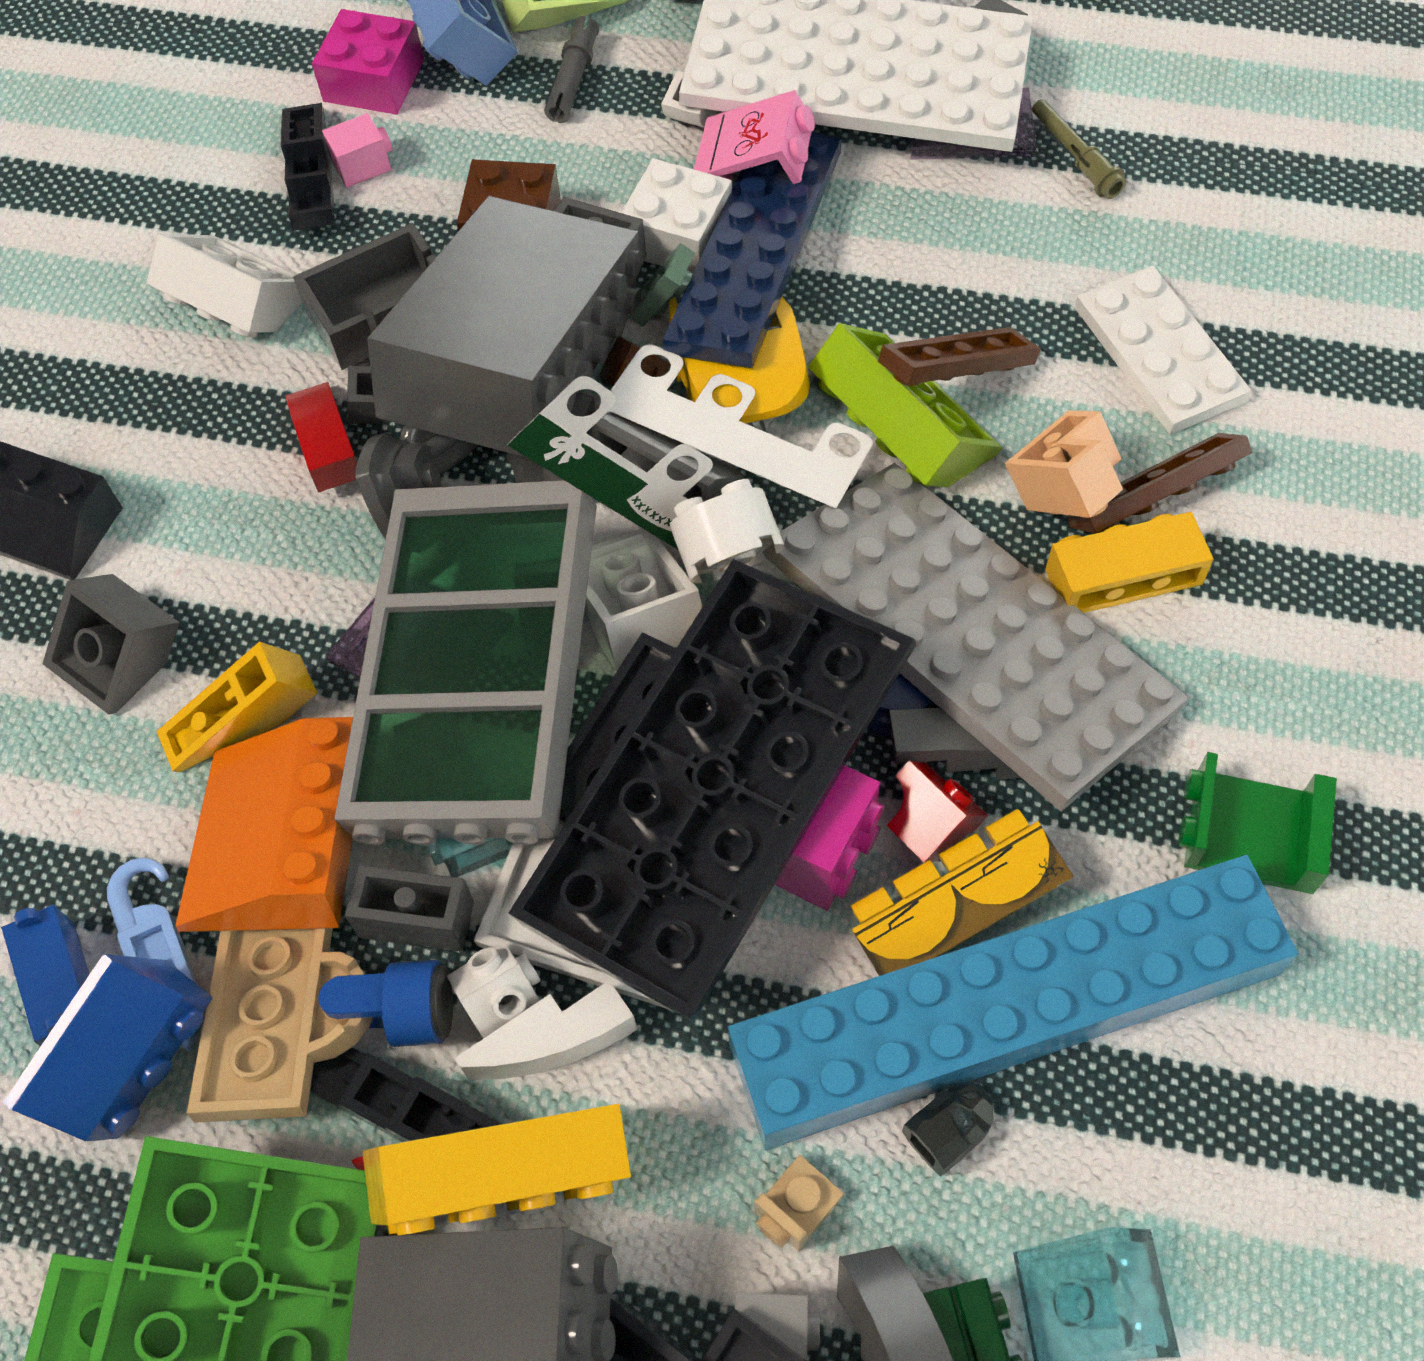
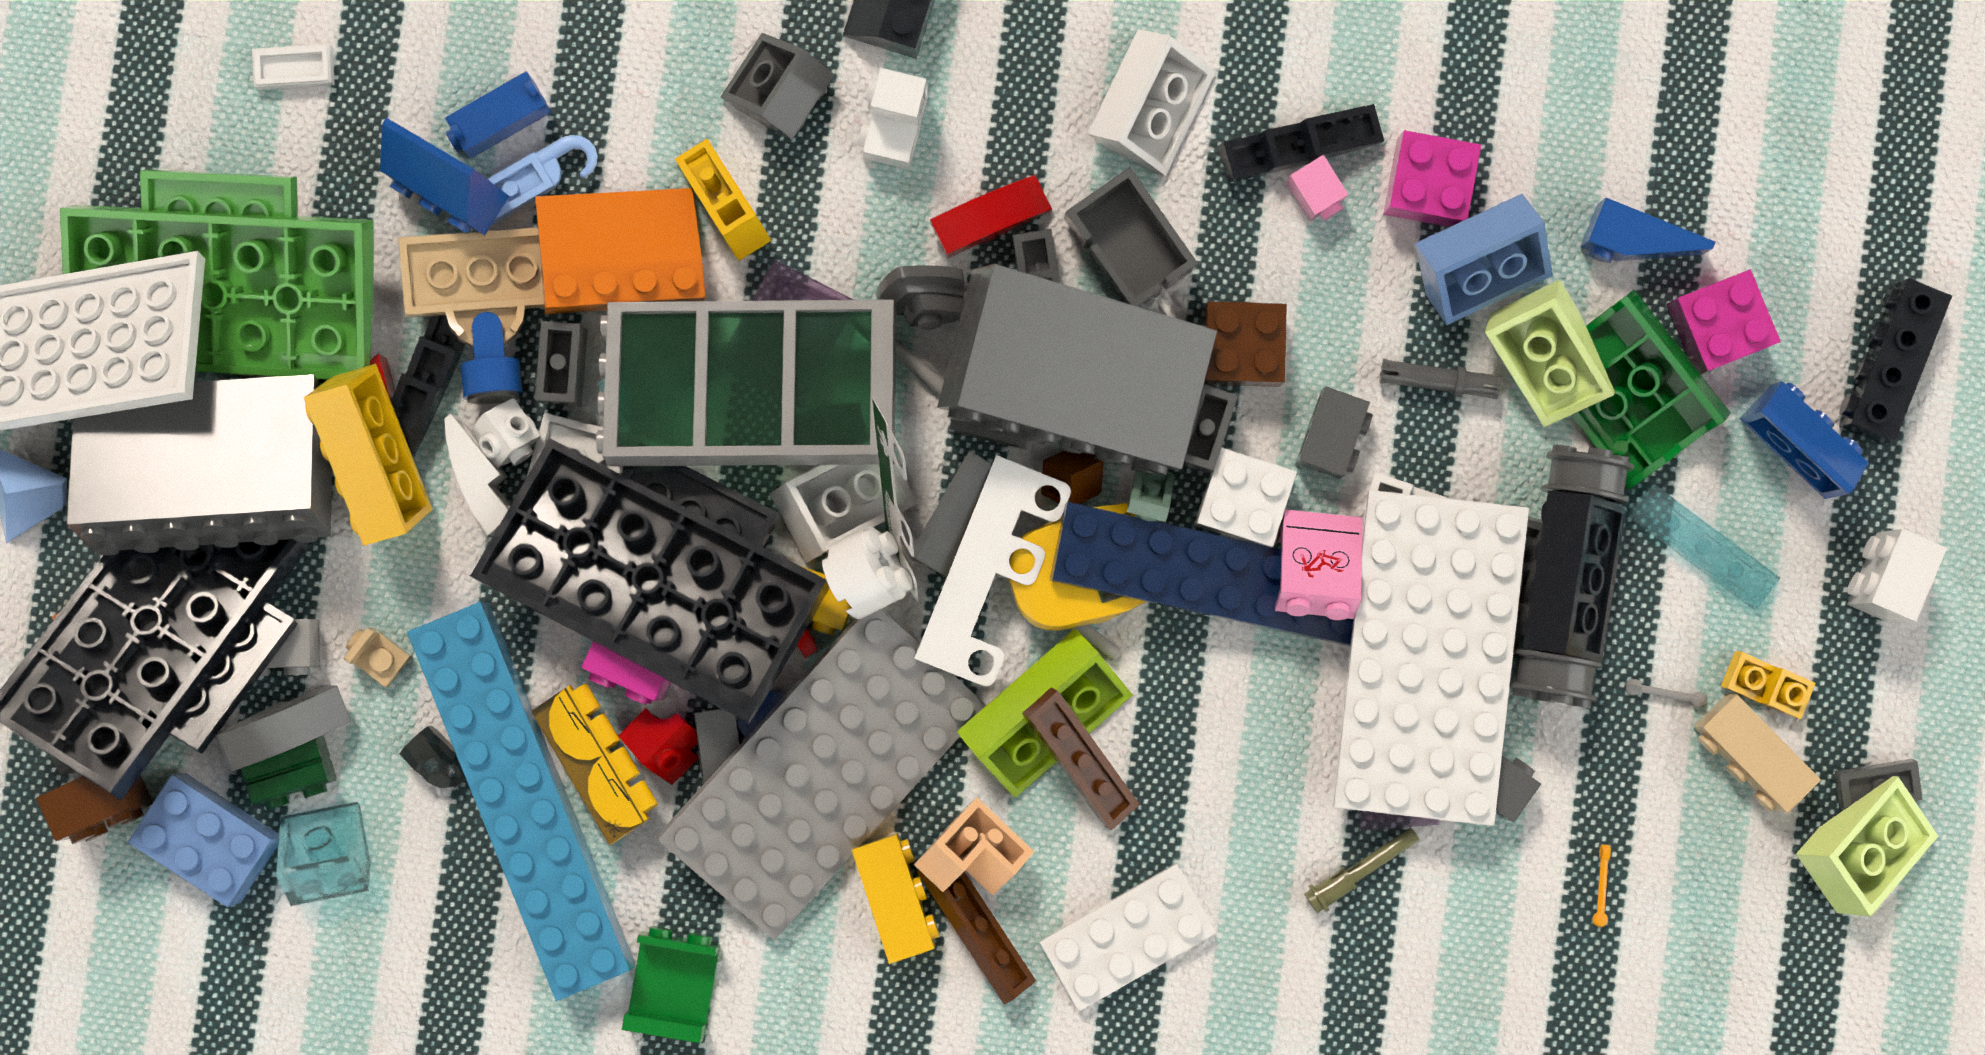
camera: 85 degrees right, 25 degrees up
(177, 512) = (896, 119): none -> white brick
(613, 146) = (1334, 432): none -> dark grey brick

